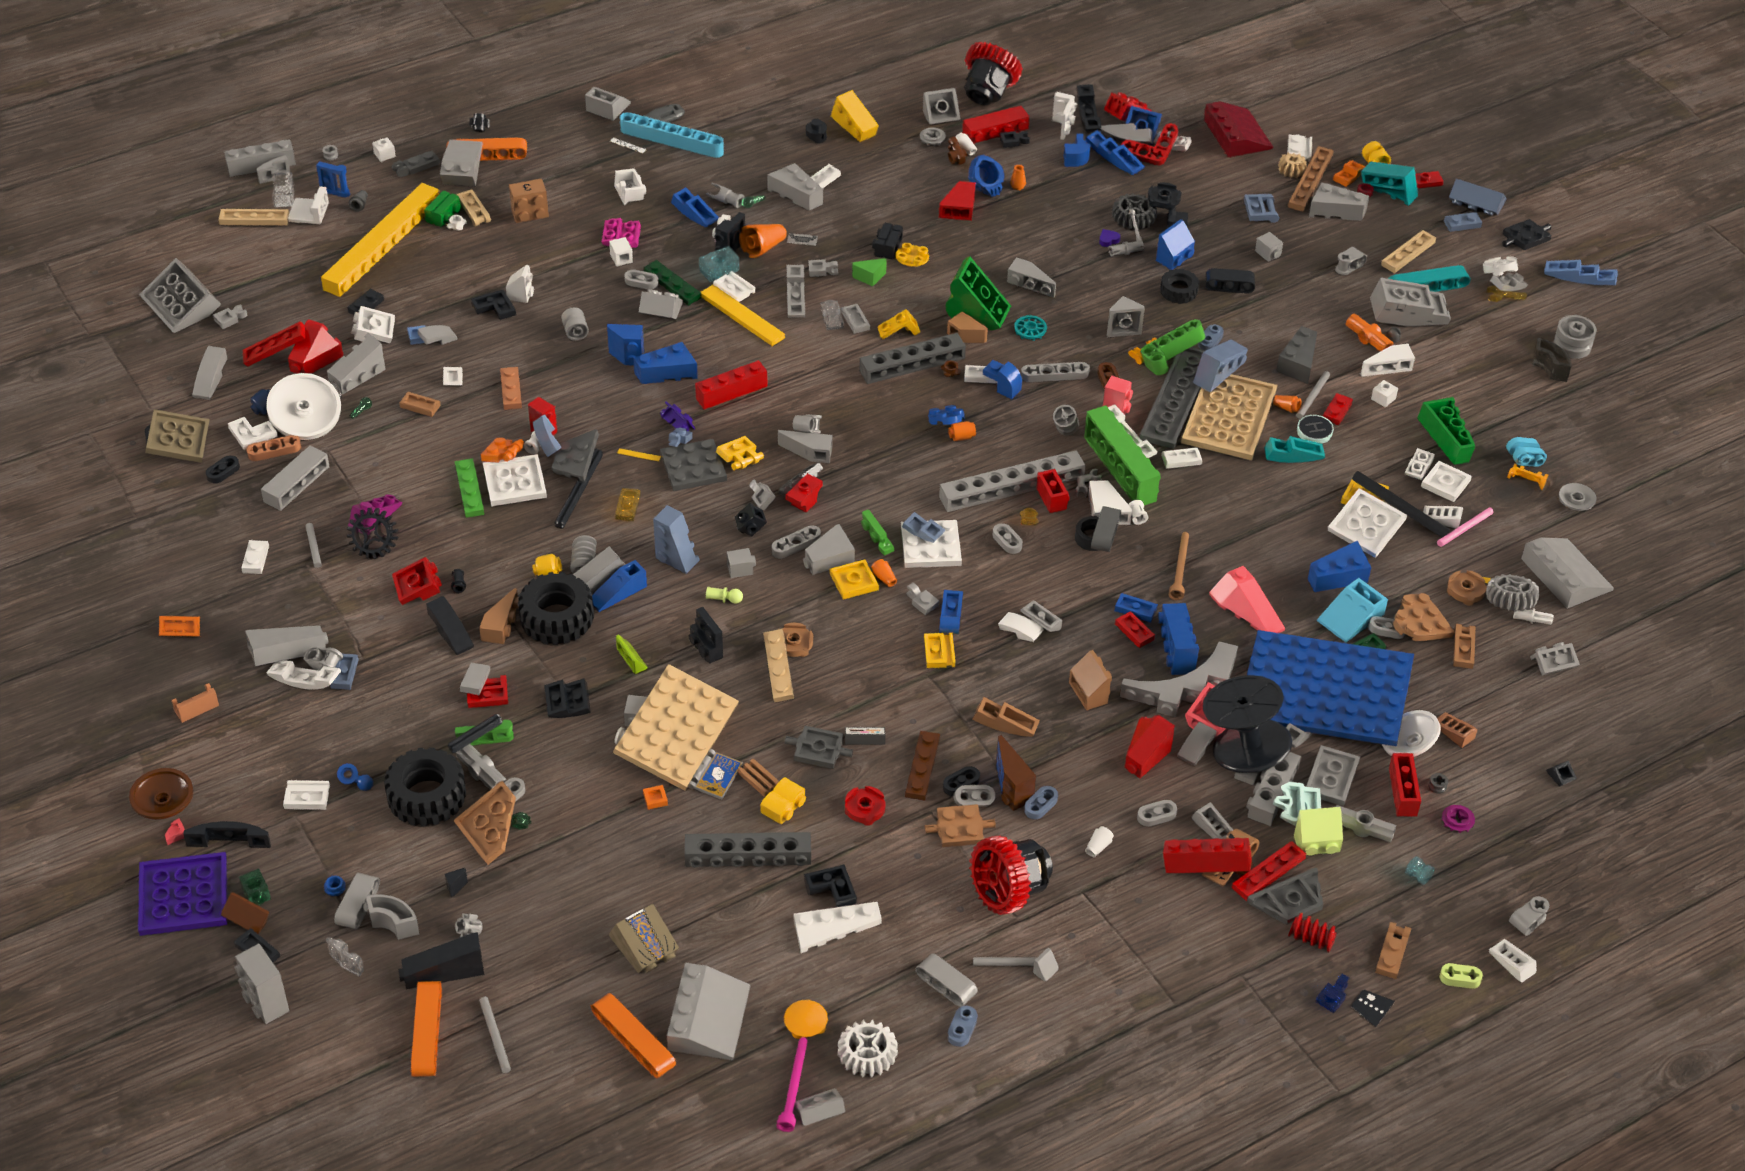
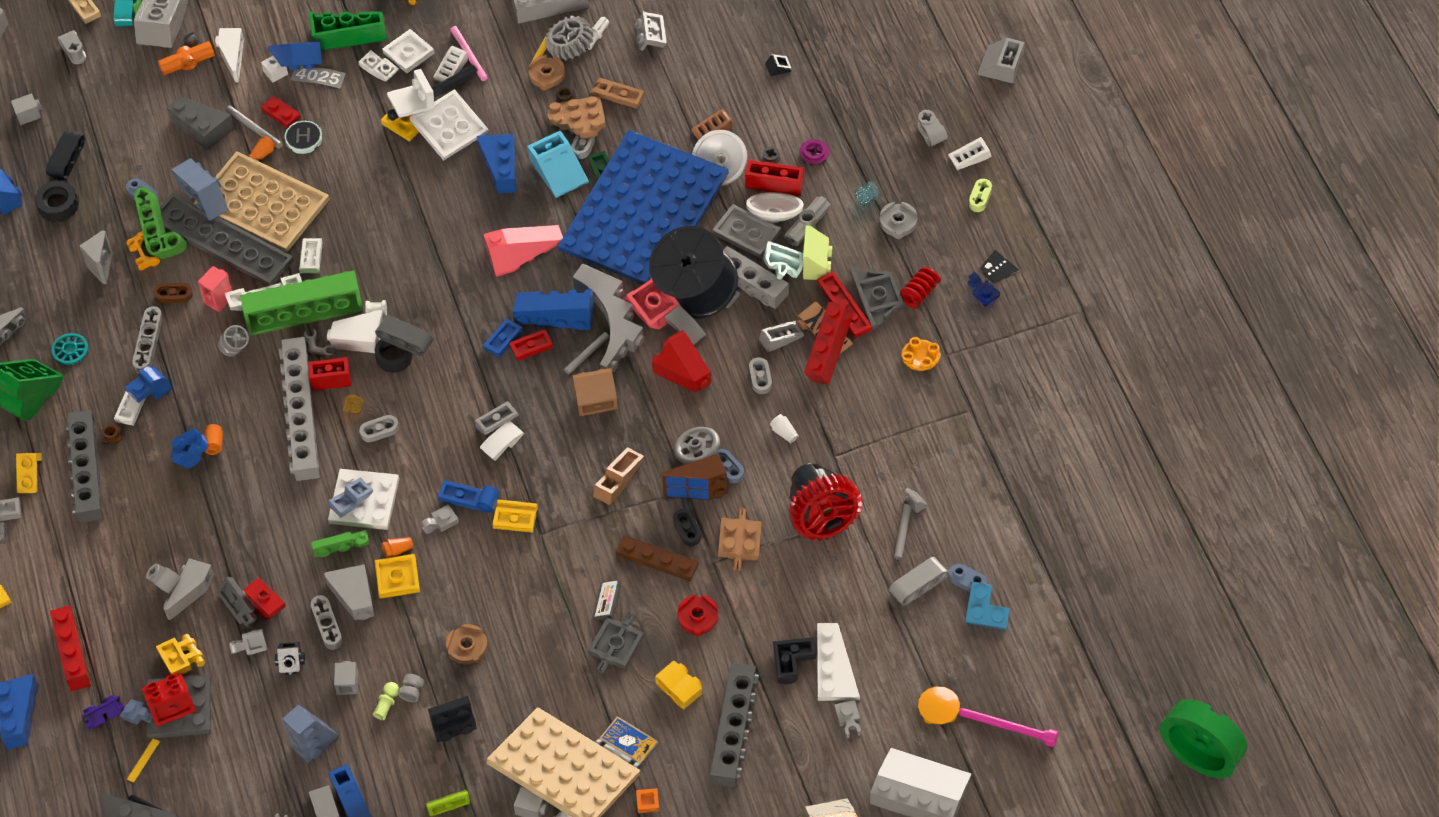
camera: 75 degrees left, 10 degrees up
(627, 504) = (224, 778): clear yellow plate -> none
(687, 446) = (168, 699): none -> red bracket
(739, 608) = (411, 688): none -> light grey wheel
(761, 775) = (651, 693): medium nougat tile -> none
(778, 665) = (501, 662): tan plate -> none
(778, 943) = (848, 715): none -> light grey plate
(820, 1106) = (1035, 708): light grey slope -> none
(867, 1055) = (982, 664): white gear -> none
(924, 1039) = (980, 610): none -> dark azure plate
(967, 328) = (56, 406): medium nougat slope -> none
(973, 795) = (710, 522): light grey plate -> none
(1056, 774) = (696, 445): none -> light grey plate
(1135, 671) = (586, 353): none -> light grey bar
(1176, 591) = (489, 299): medium nougat piece -> none
(1229, 946) = (920, 354): none -> light orange dish
(1293, 450) = (330, 161): teal slope -> none
(1368, 788) = (774, 206): none -> white dish
(1378, 483) = (413, 98): none -> white bracket
(1391, 428) = (319, 76): none -> light grey sticker
(1393, 951) = (945, 236): medium nougat plate -> none
(1397, 914) = (895, 228): none -> light grey plate
(1400, 400) = (297, 54): none -> blue slope
(1444, 605) = (564, 94): none -> dark brown plate
(1654, 972) = (1002, 60): none -> light grey slope

